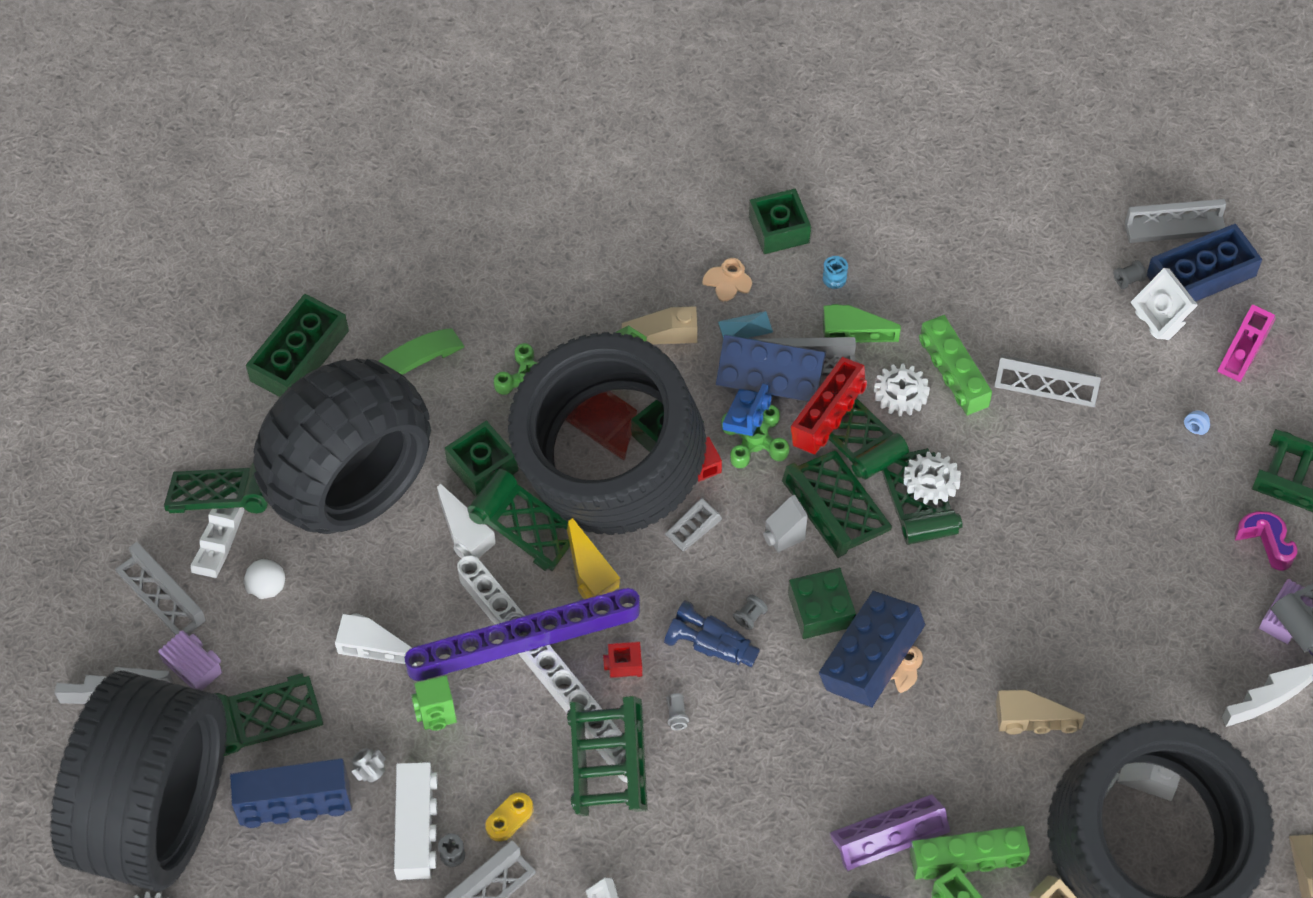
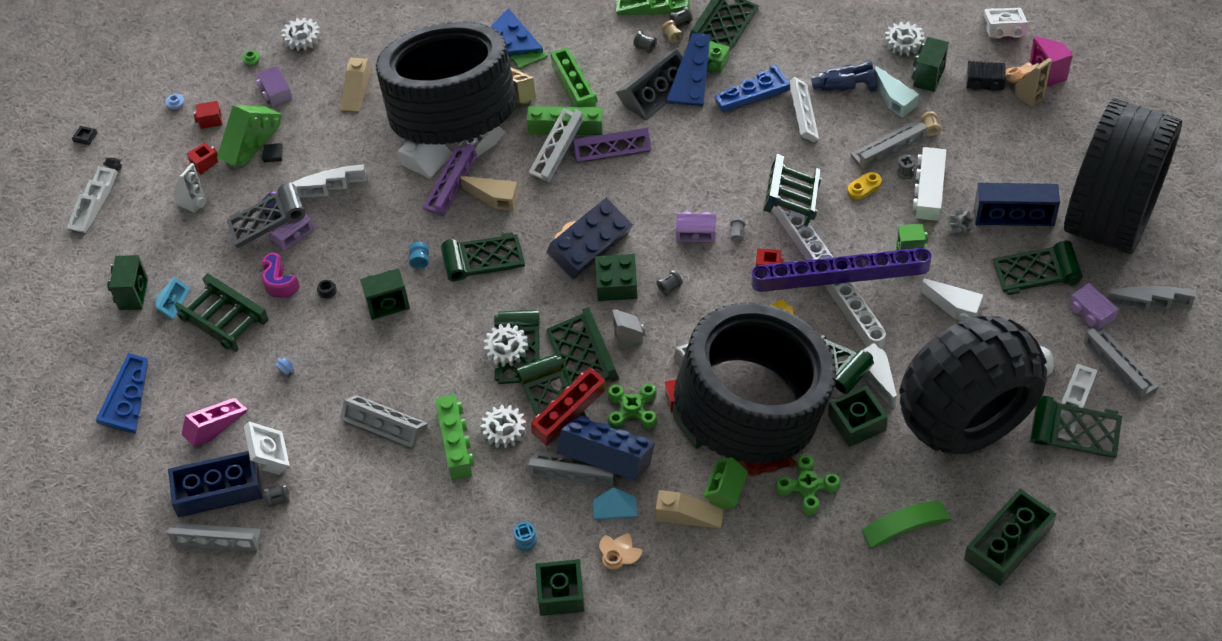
camera: 165 degrees left, 5 degrees down
(714, 639) = (703, 269): dark blue piece -> none
(733, 702) = (696, 227): none -> lavender brick
(747, 411) = (634, 412): blue bracket -> none
(854, 322) = (526, 486): bright green slope -> none
(955, 789) = (560, 147): none -> white fence
(1043, 603) = (457, 261): none -> dark green piece
(1092, 719) = (453, 182): none -> medium lavender fence
(1096, 601) = (420, 252): none -> dark azure wheel
(1112, 521) = (385, 293): none -> dark green brick
(1199, 530) = (326, 284): none -> black plate

